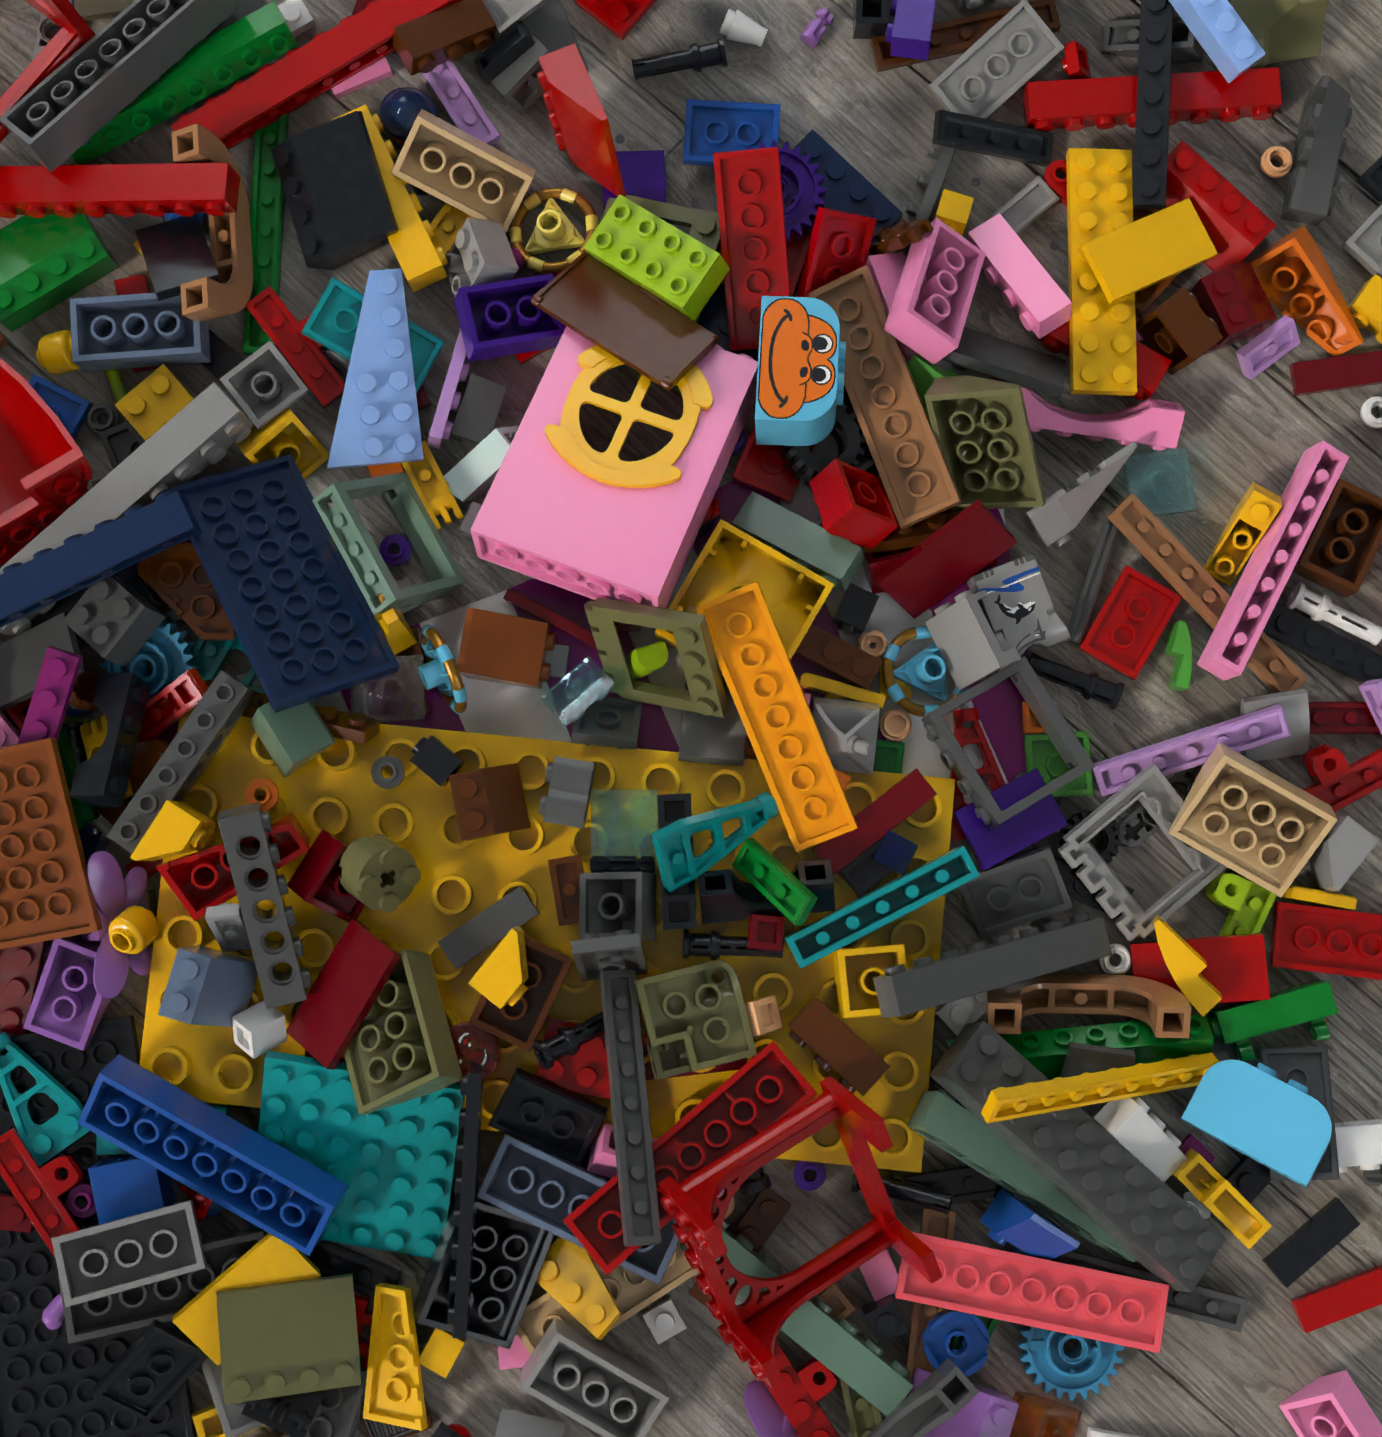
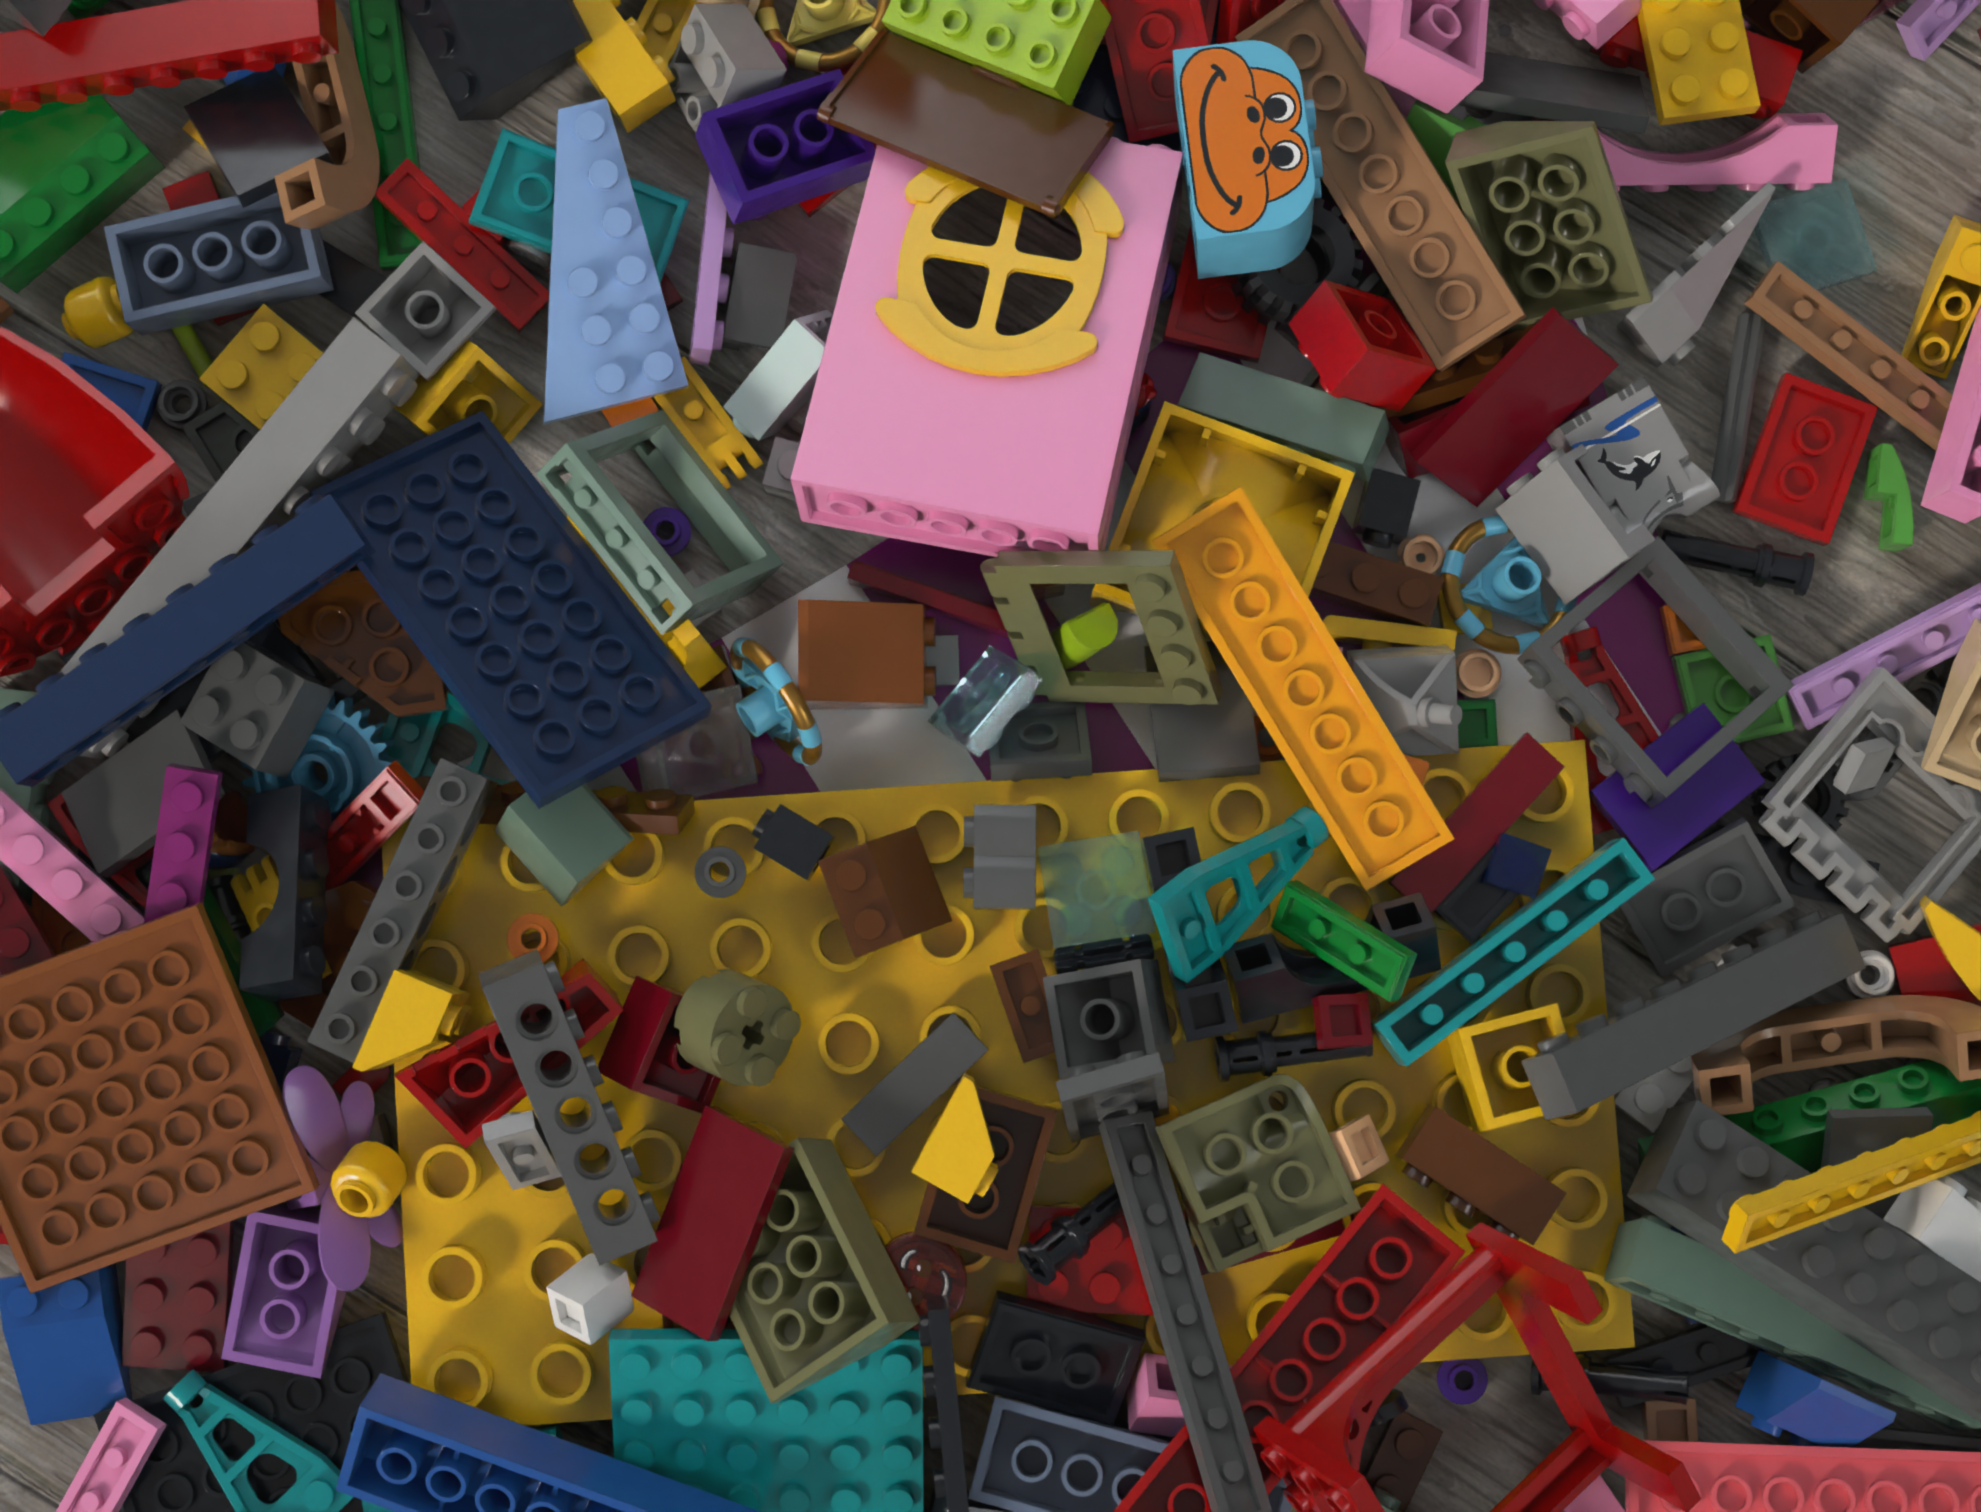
camera: 15 degrees left, 0 degrees up
(208, 986) = (504, 1246): sand blue slope -> none
(1132, 825) = (1863, 765): none -> light grey tile

